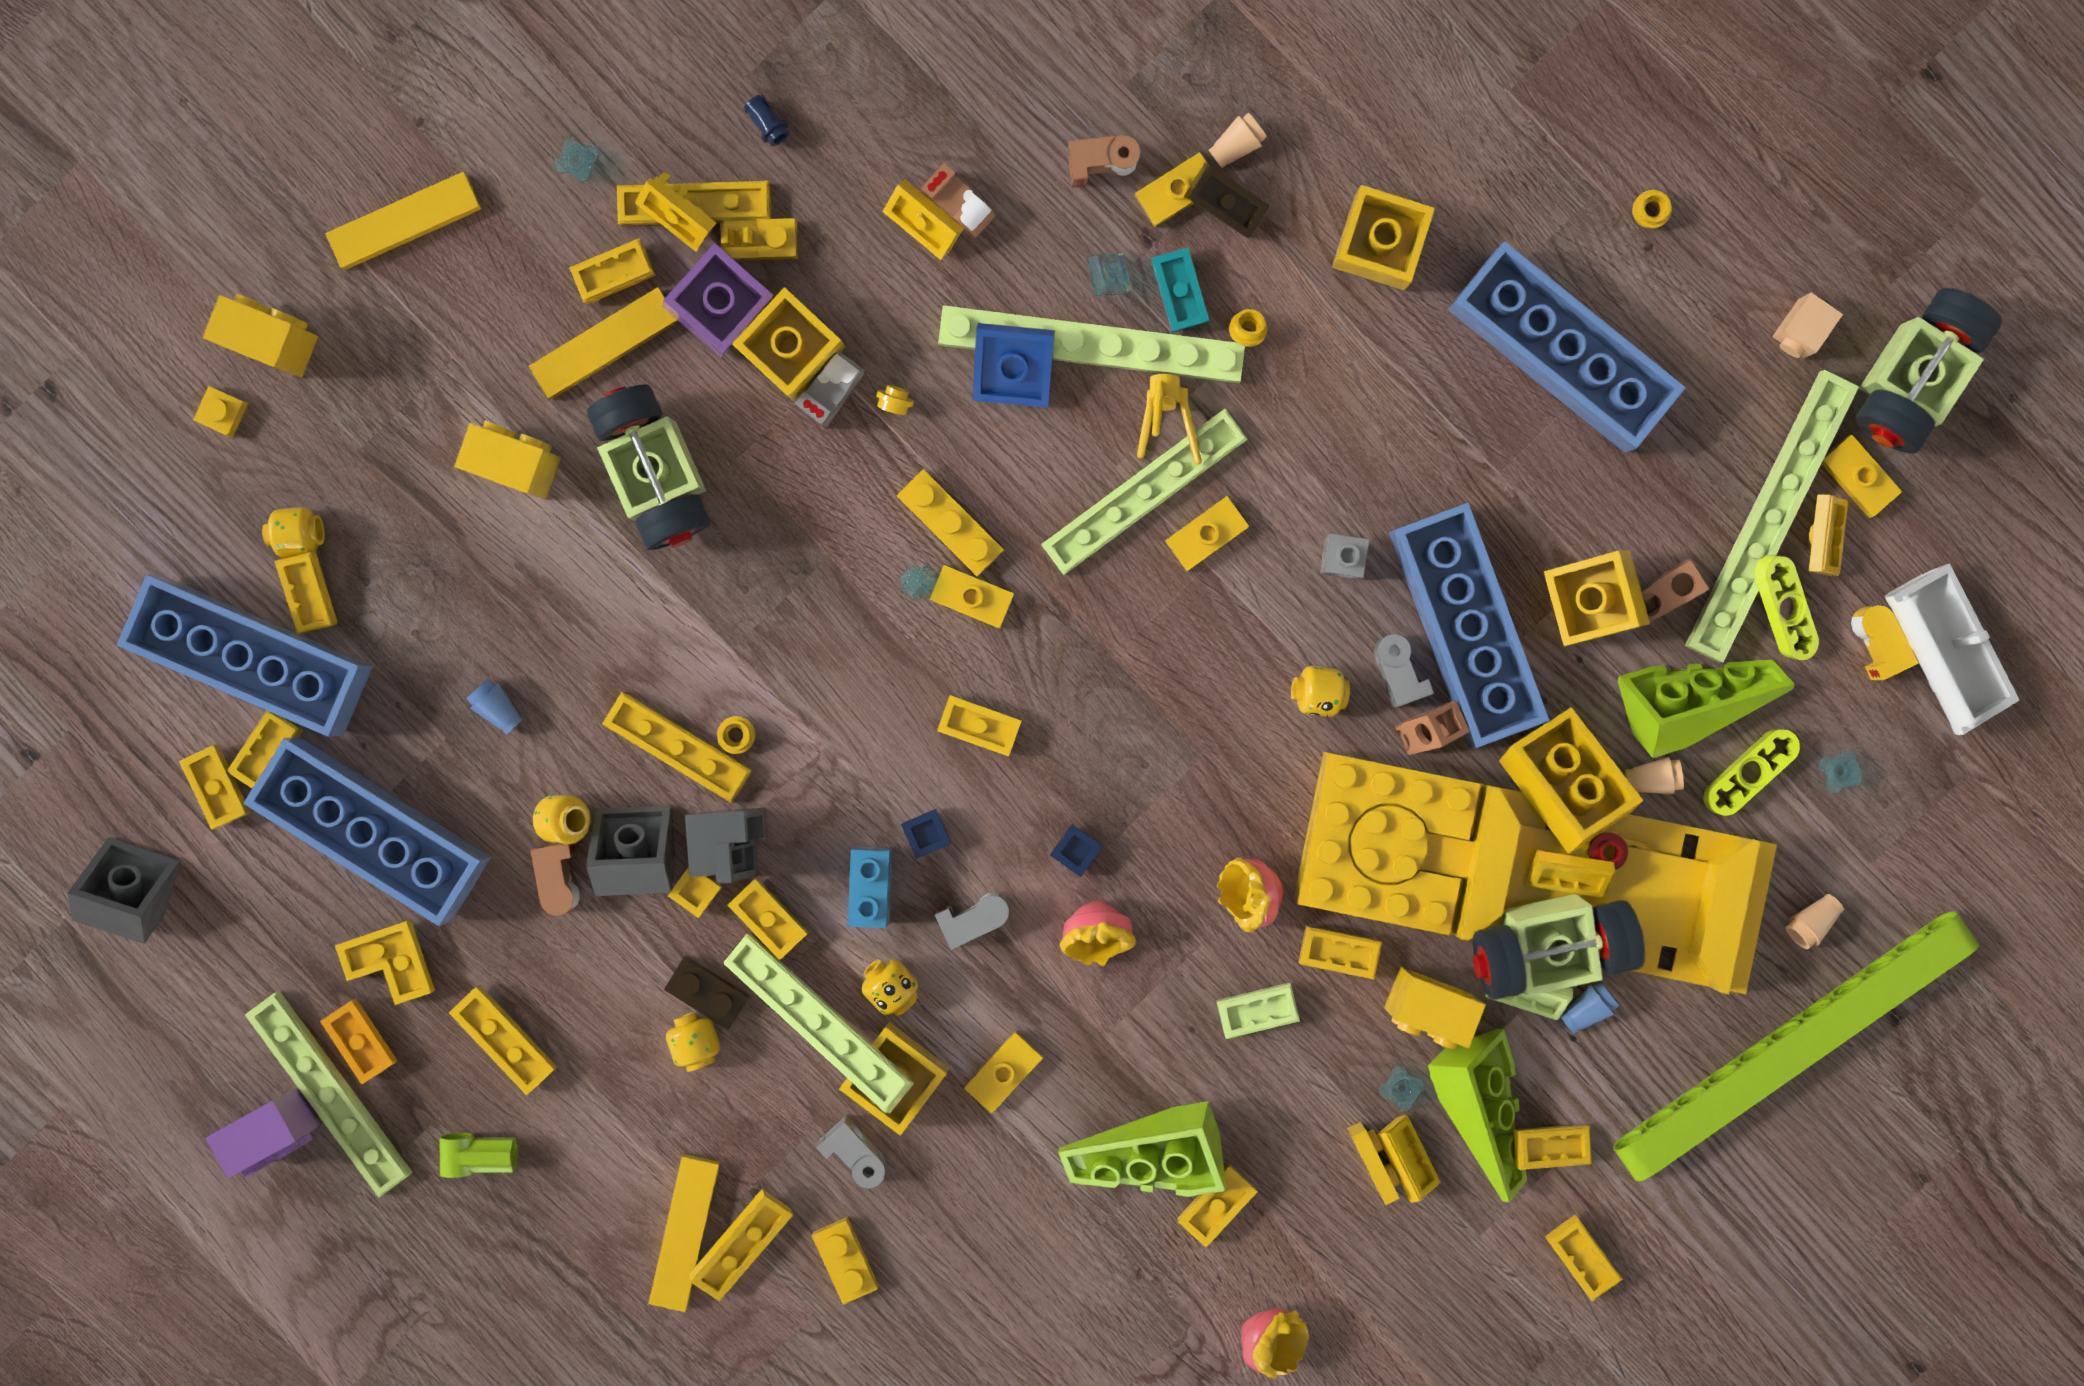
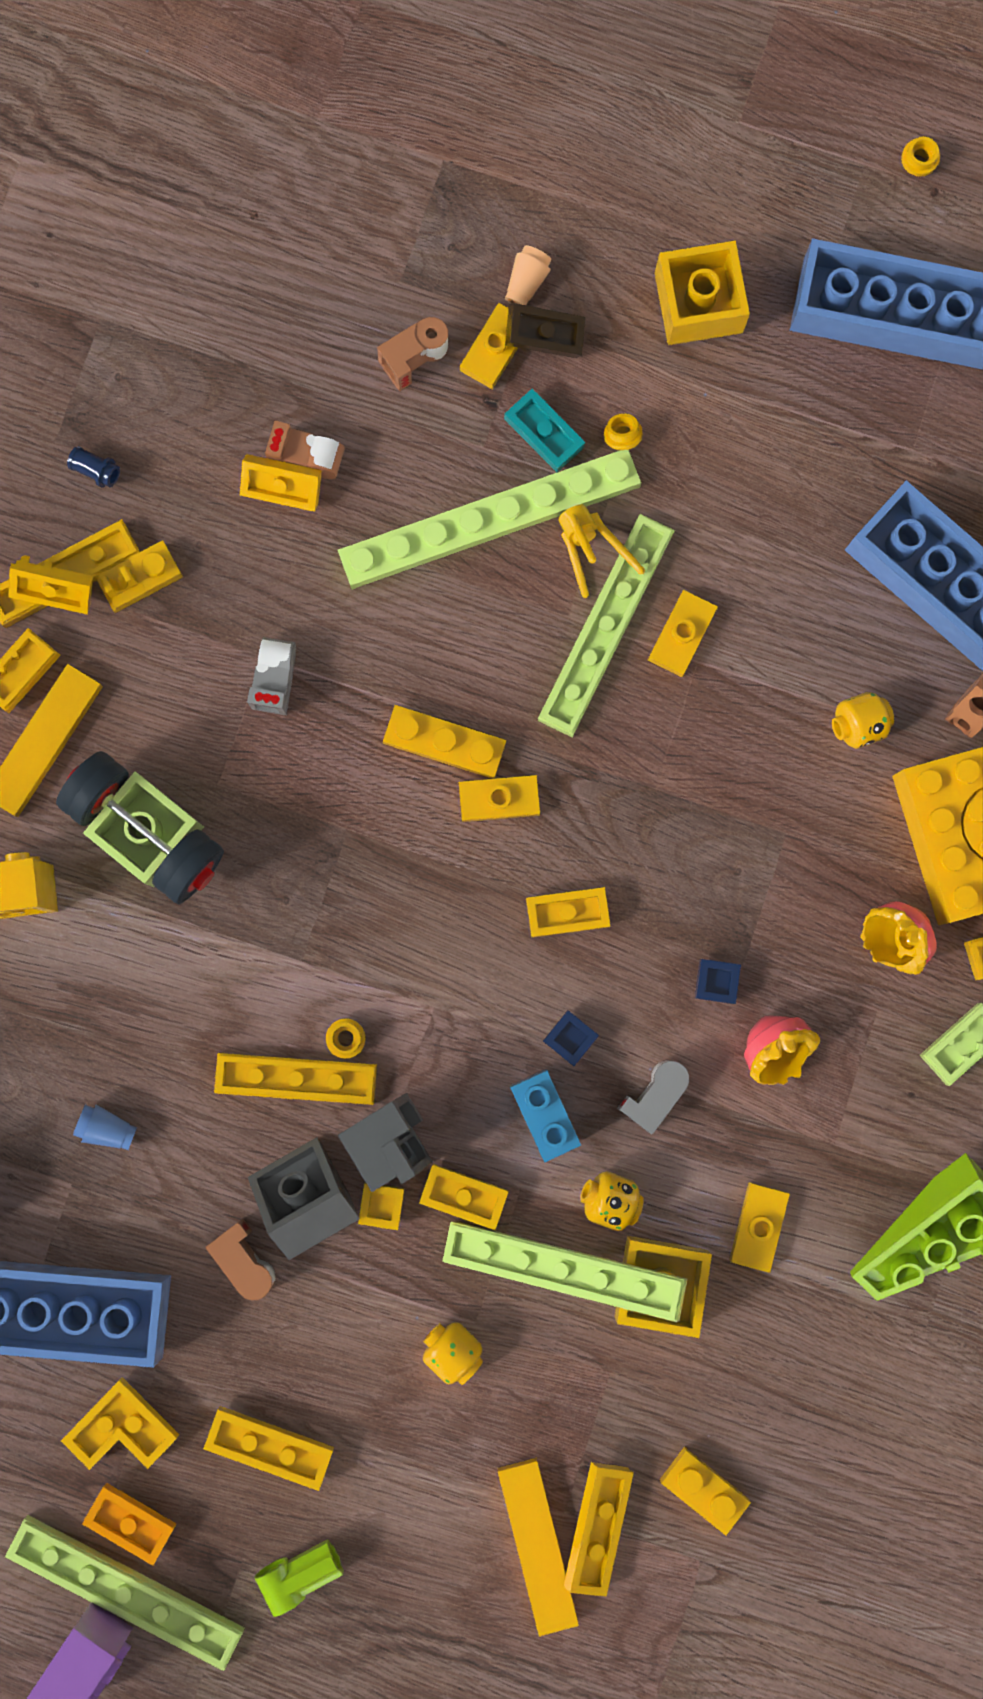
camera: 30 degrees left, 5 degrees down
(561, 819) = (220, 1203): yellow head -> none
(706, 992) = (441, 1298): dark brown plate -> none
(717, 300) = (128, 645): medium lavender brick -> none
(788, 344) = (214, 652): yellow brick -> none
(855, 1151) = (660, 1377): light grey leg -> none
(894, 400) = (337, 655): yellow plate -> none
(916, 581) = (441, 810): clear light blue plate -> none
(1013, 365) = (429, 568): blue plate -> none
(1109, 274) = (473, 447): clear light blue plate -> none
(1344, 556) = (818, 588): light grey brick -> none
(1397, 672) = (921, 667): light grey leg -> none

